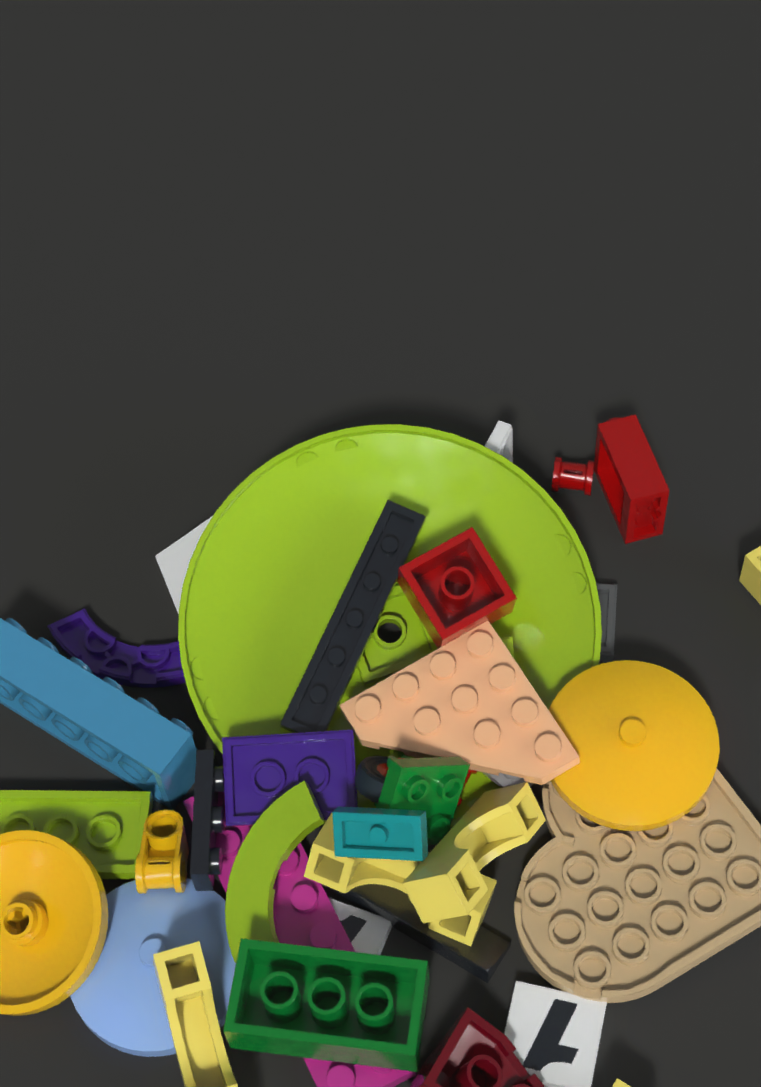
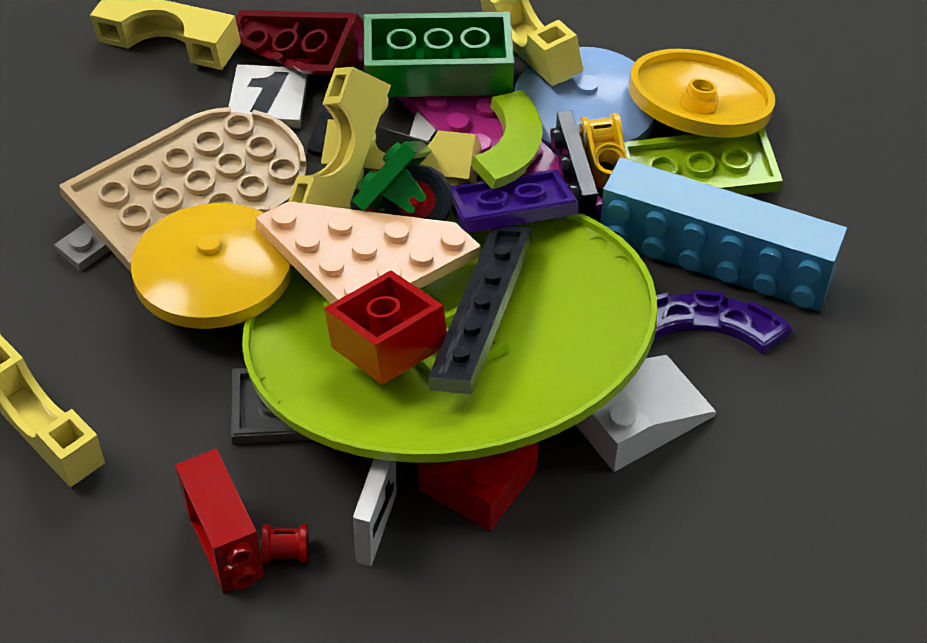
camera: 165 degrees right, 5 degrees down
(380, 833) = (417, 127): teal plate -> none

